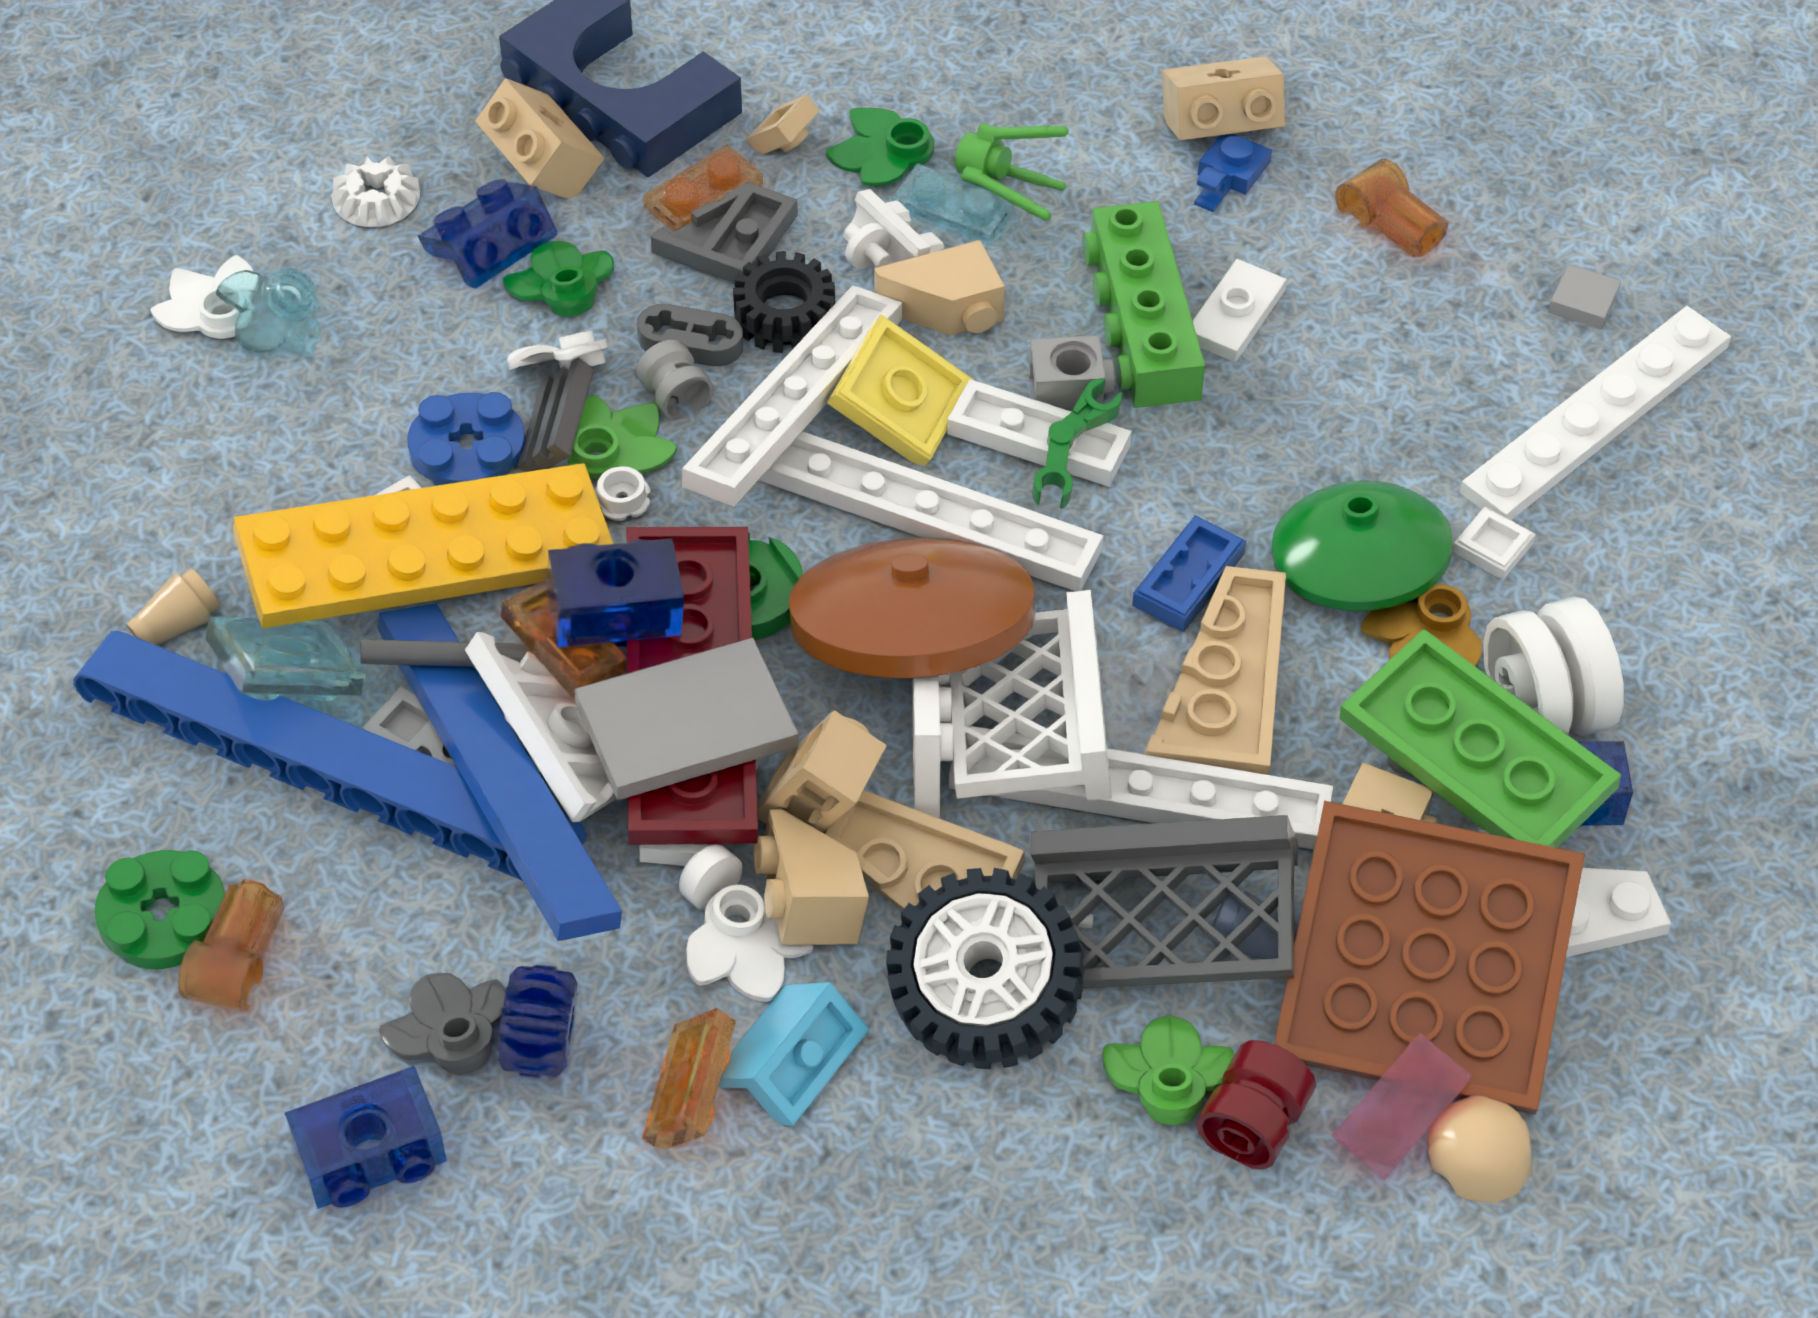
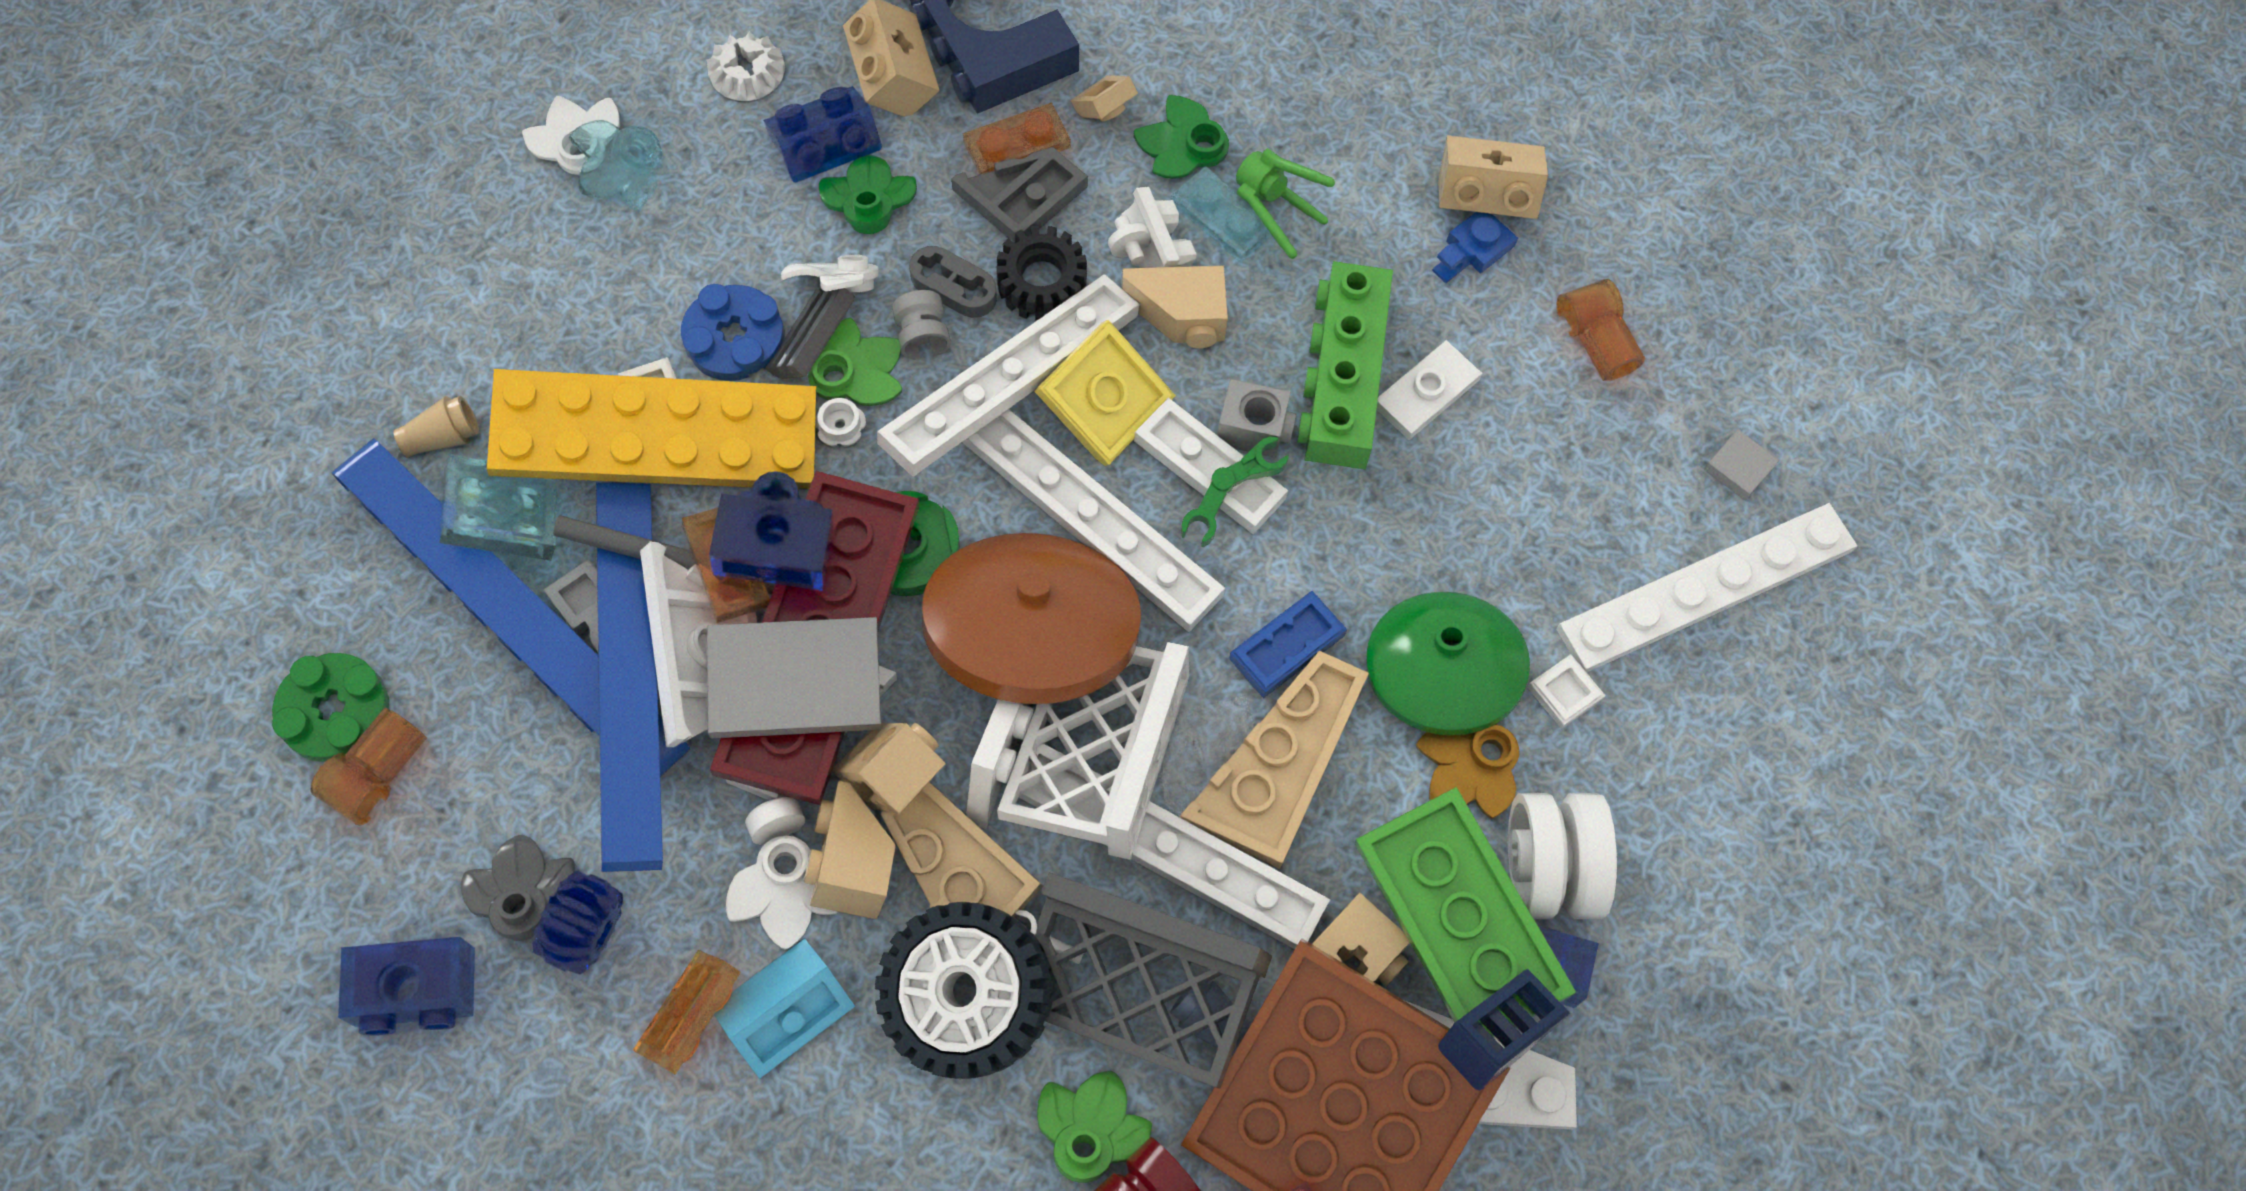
camera: 15 degrees right, 15 degrees up
(1560, 819) = (1474, 1049): none -> dark blue slope

